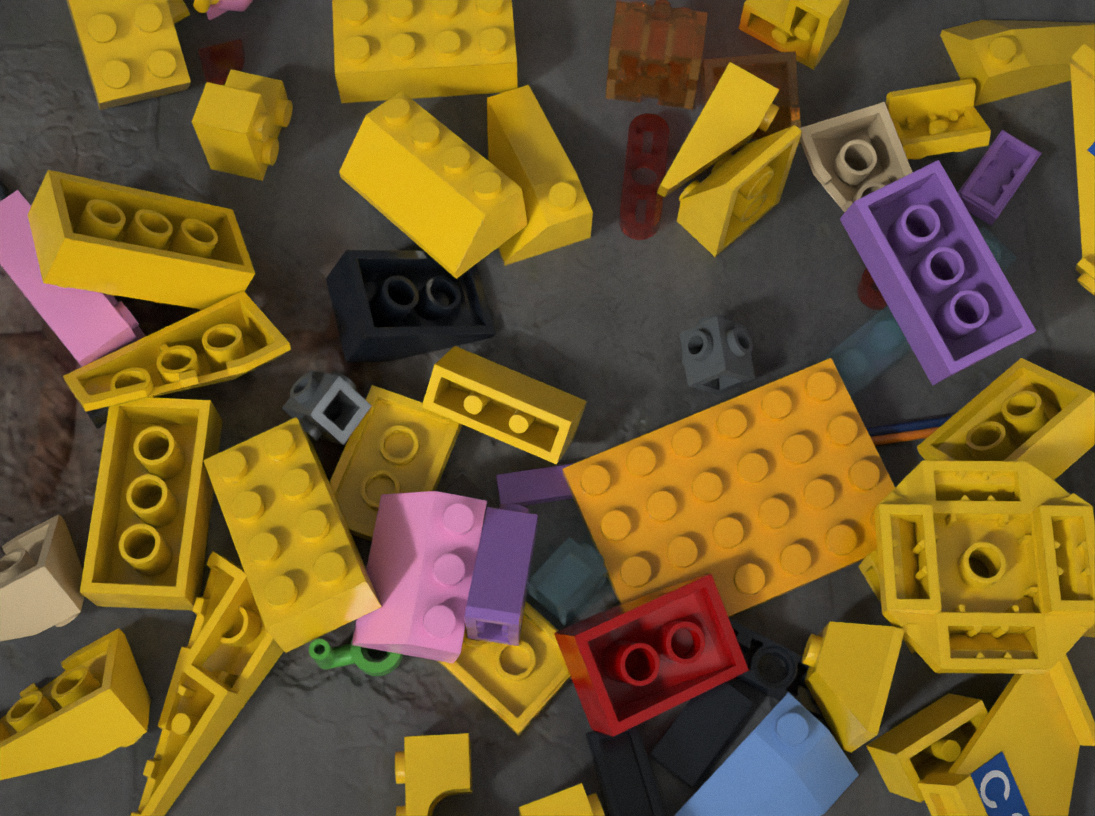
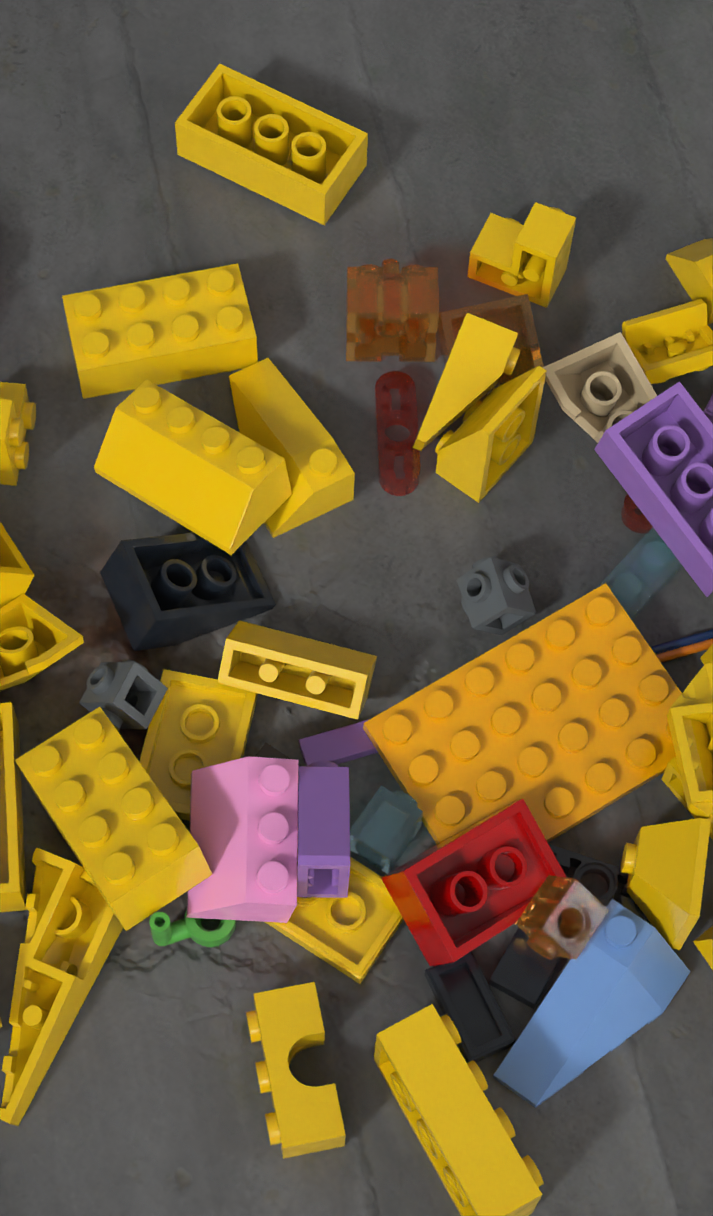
camera: 10 degrees left, 5 degrees down
(751, 709) = (580, 918): none -> clear orange brick

